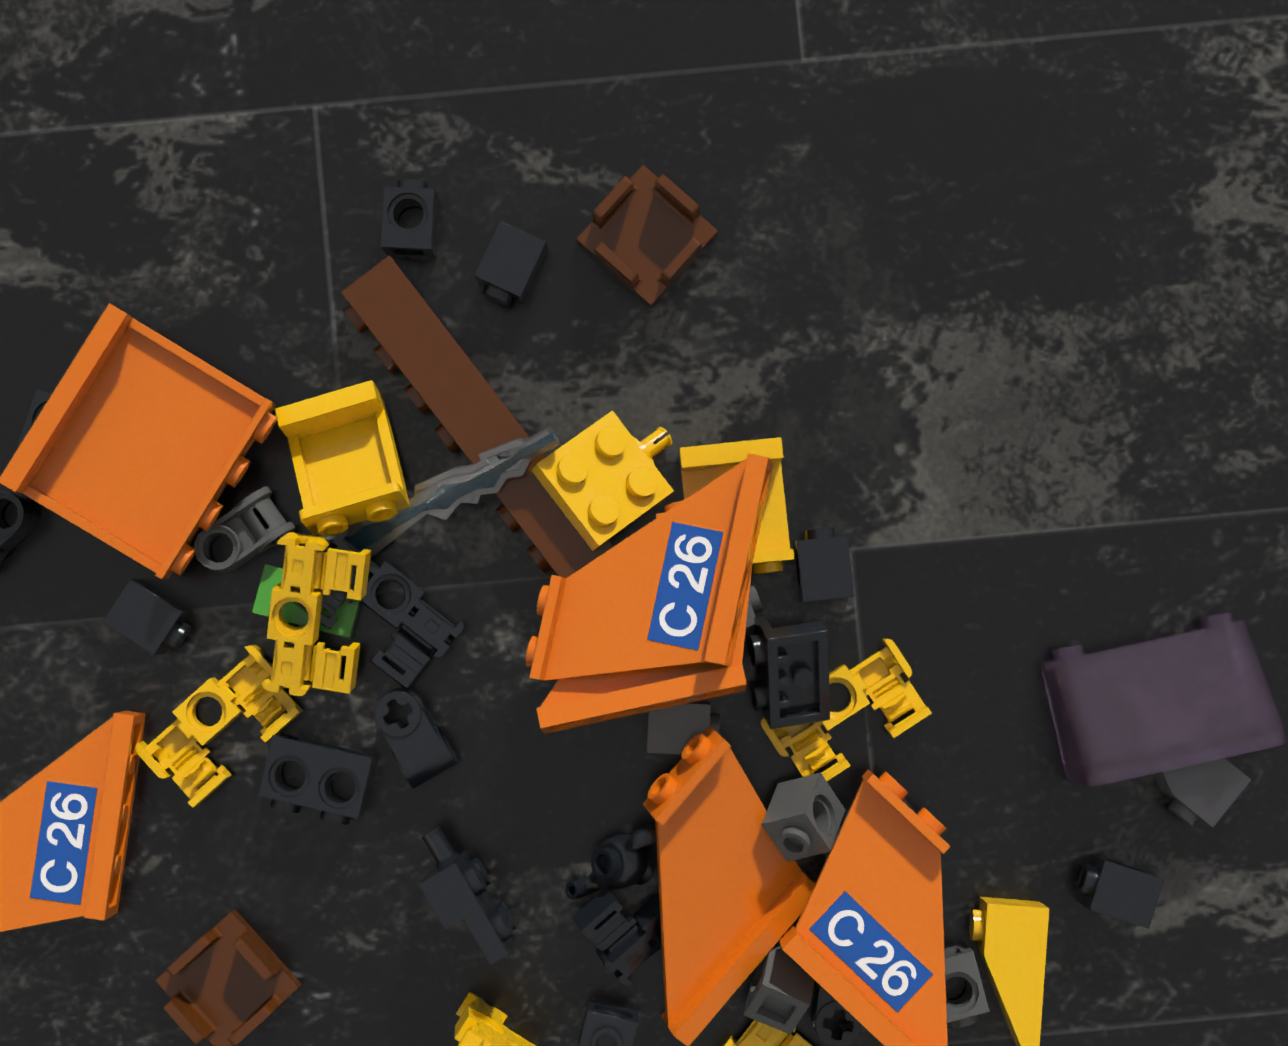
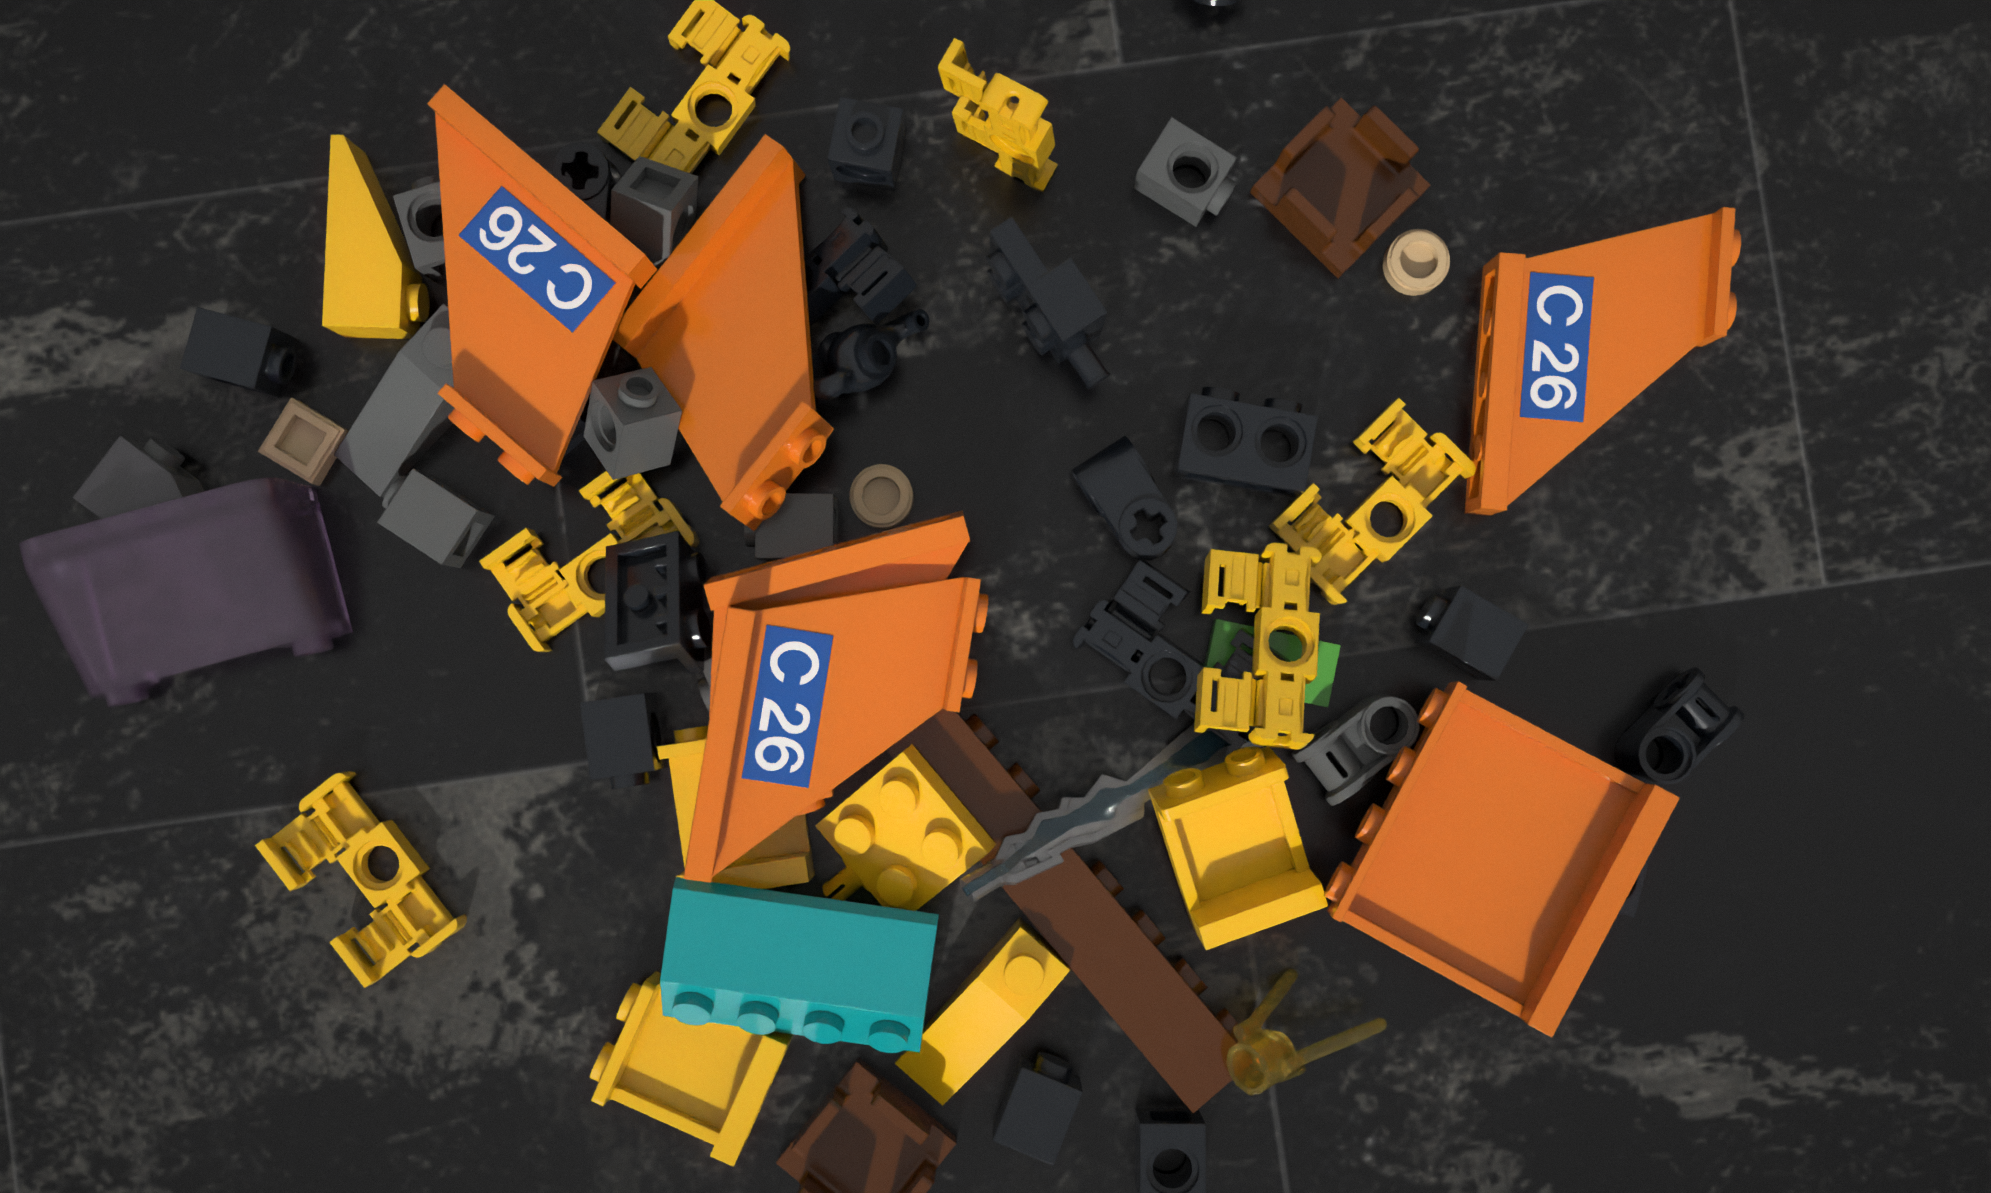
camera: 175 degrees right, 0 degrees up
(171, 918) = (1416, 262): none -> tan tile
(327, 296) = (1269, 1056): none -> clear yellow plant
(352, 1022) = (1183, 146): none -> dark grey brick
(549, 338) = (985, 1011): none -> yellow slope
(611, 749) = (881, 496): none -> tan tile
(689, 384) = (797, 965): none -> teal slope
(779, 310) = (687, 1075): none -> yellow panel
(968, 750) = (434, 517): none -> dark grey brick
(987, 839) = (404, 410): none -> dark grey slope
(1047, 511) = (348, 823): none -> yellow piece
(1072, 817) = (304, 441): none -> tan tile

